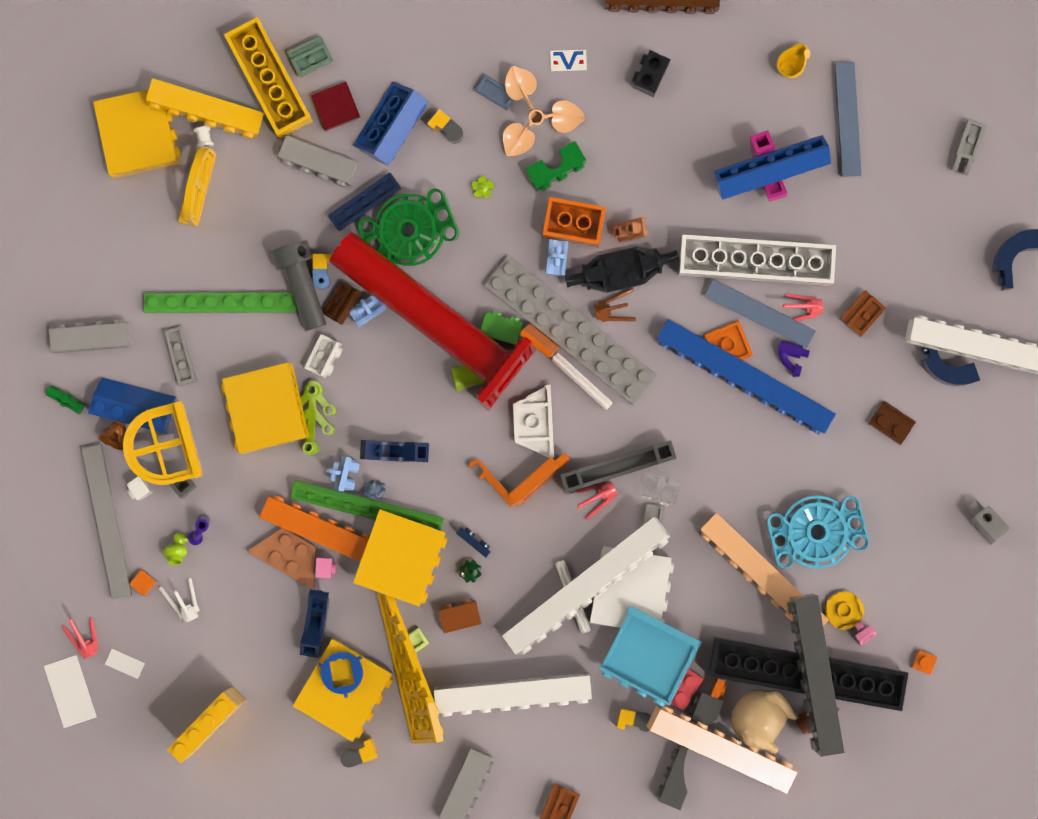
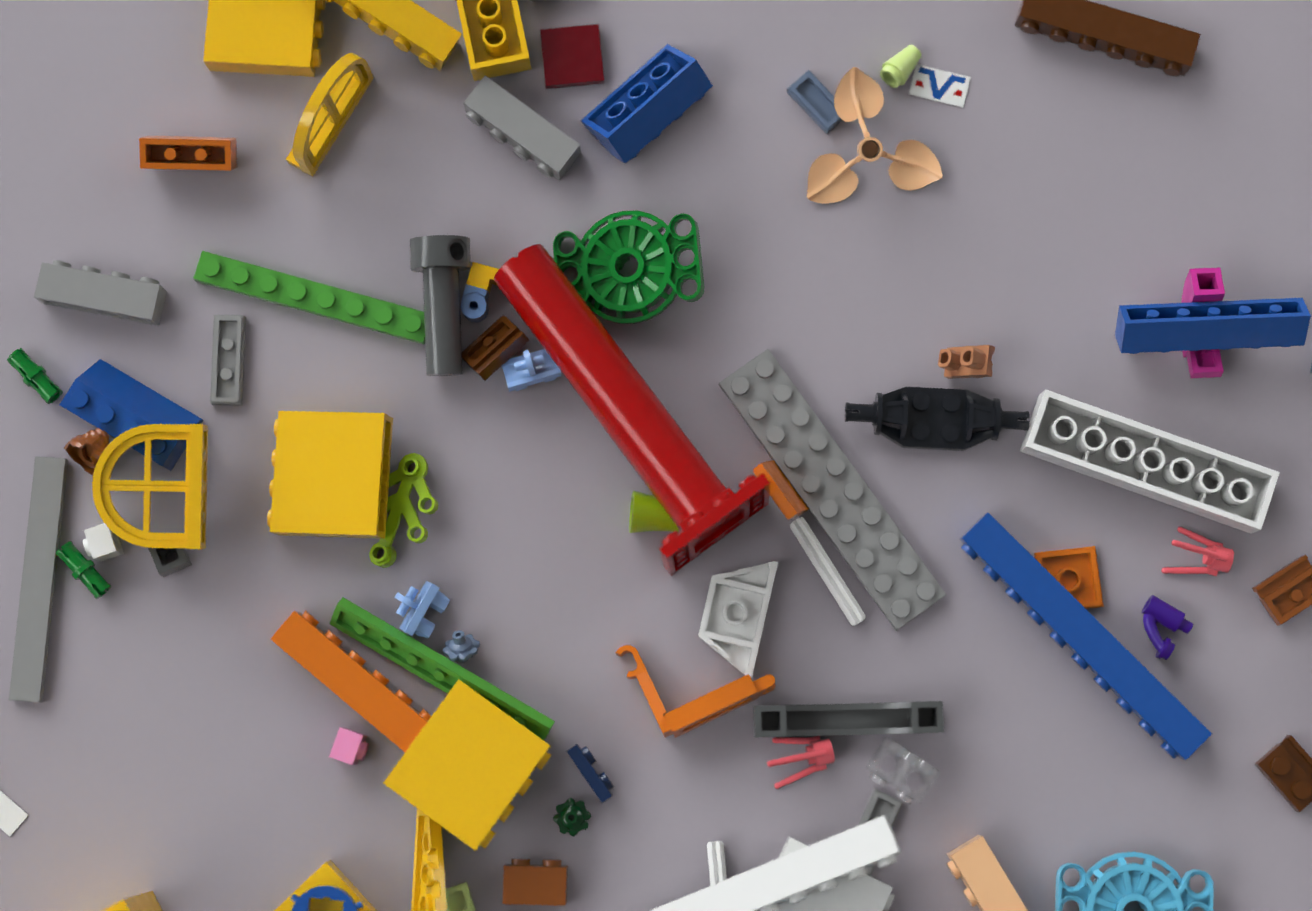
camera: 15 degrees right, 5 degrees down
(117, 235) = (188, 153): none -> orange brick
(132, 508) = (83, 569): none -> green pin
(143, 582) = (64, 688): orange tile -> none
(177, 551) = (129, 656): lime animal -> none
(186, 612) = (115, 754): white plant -> none
(201, 525) = (176, 626): dark purple plant -> none
(203, 137) = (362, 43): white bush -> none
(289, 555) = (299, 710): nougat wing -> none
(315, 623) = (307, 829): dark blue arch -> none
(323, 356) = (443, 421): white bracket -> none
(364, 202) = (573, 208): dark blue plate -> none
(394, 451) = (508, 596): dark blue arch -> none
(447, 126) = (730, 130): leg -> none
(482, 187) = (757, 236): lime plant -> none
(501, 328) = (726, 455): bright green brick -> none
(541, 55) = (899, 67): none -> yellowish green cone
(542, 176) = (854, 244): green arch -> none
(557, 257) = (842, 371): light blue hips -> none
(574, 222) = (882, 325): orange brick -> none
(603, 311) = (891, 471): dark orange plant -> none
(653, 74) = (1064, 140): black brick -> none
(760, 313) = (1131, 545): sand blue tile -> none
(793, 60) = (1281, 177): yellow hair -> none

